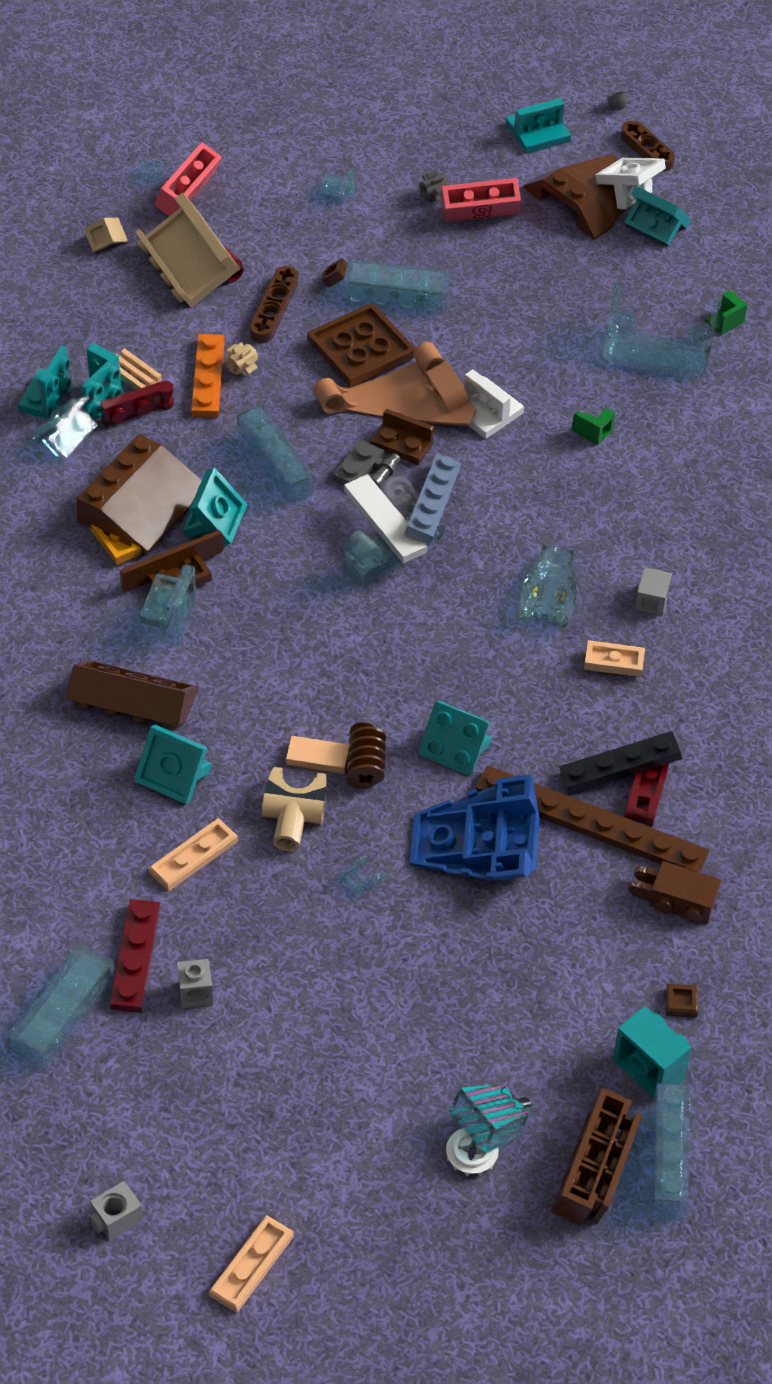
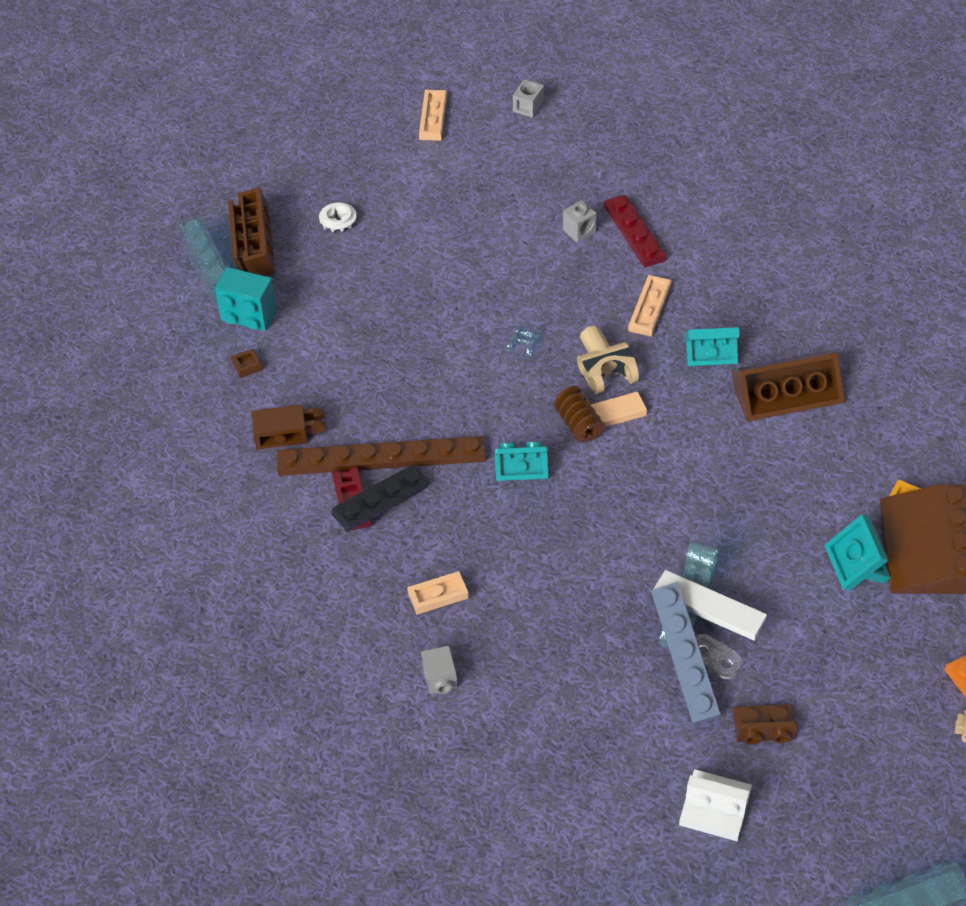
camera: 155 degrees right, 0 degrees up
(61, 1005) = (652, 178): clear light blue brick -> none
(171, 603) = (816, 450): clear light blue bracket -> none
(172, 561) = (840, 492): reddish brown bracket -> none
(275, 455) = (857, 637): clear light blue brick -> none
(361, 344) = (884, 812): reddish brown plate -> none
(363, 461) = (782, 677): dark grey plate -> none
(421, 390) = (805, 778): nougat panel -> none
(481, 835) = (450, 395): blue wedge -> none
(490, 1114) = (333, 227): clear light blue torso -> none
(550, 587) = (532, 630): clear light blue animal -> none
(594, 428) = (601, 832): green panel -> none

